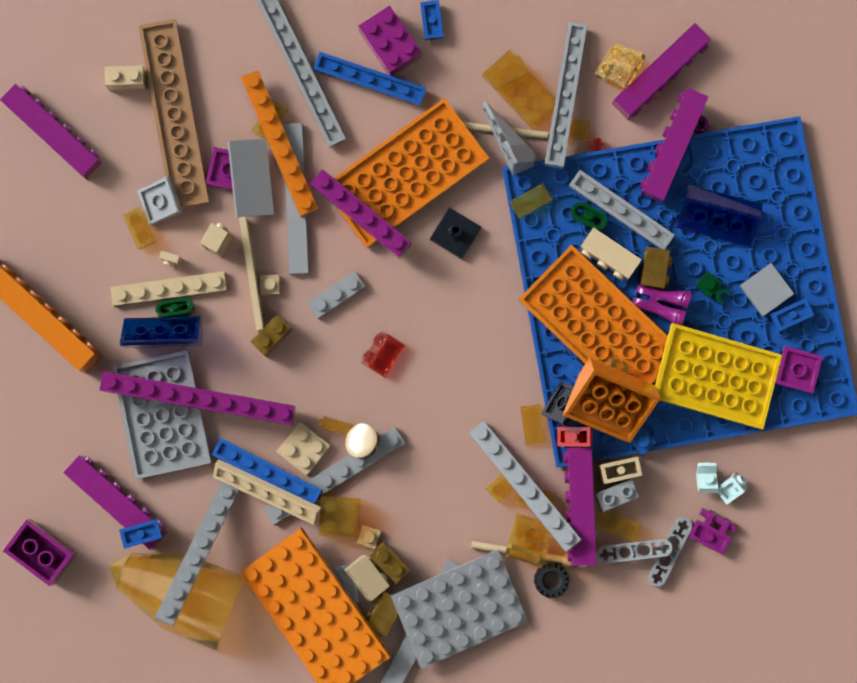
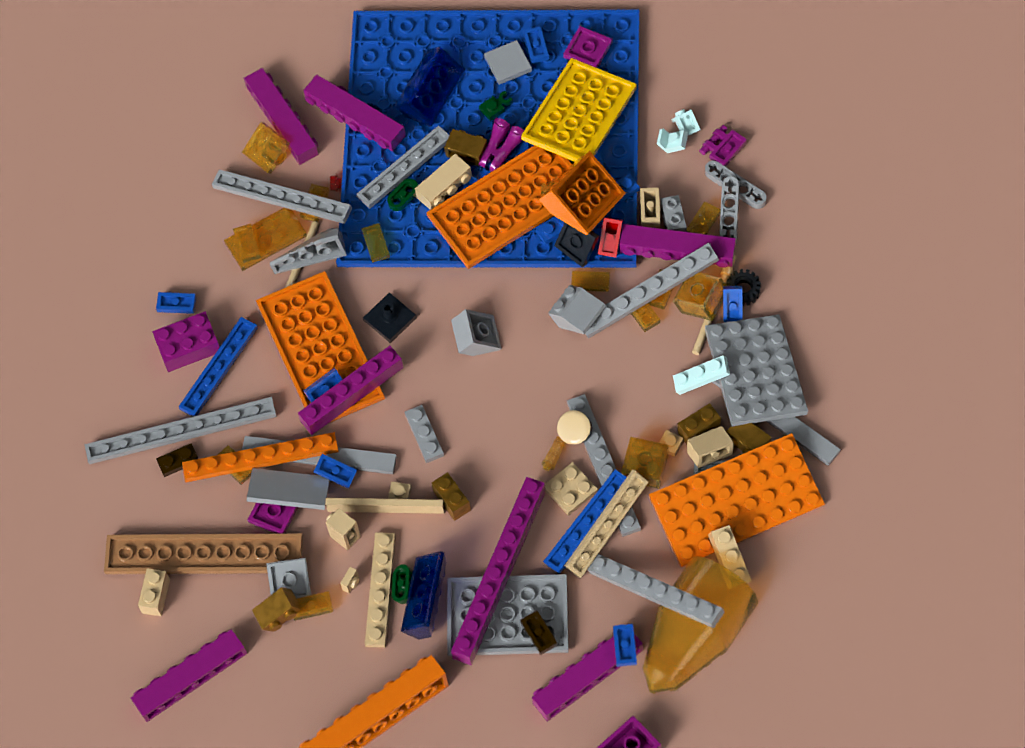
camera: 70 degrees left, 20 degrees down
(126, 198) = (277, 609): none -> pearl gold brick
(143, 449) = (538, 632): none -> dark brown plate
(251, 617) = (728, 552): none -> tan brick
(267, 65) = (172, 461): none -> dark brown plate
(278, 218) = (335, 471): none -> blue plate
(359, 187) = (322, 385): none -> blue plate
(382, 354) = (492, 399): clear red bracket -> none
(441, 556) = (701, 375): none -> light aqua plate
(450, 322) = (475, 333): none -> light grey slope
(490, 418) = (576, 310): none -> light grey slope
(525, 573) = (732, 303): none -> blue plate

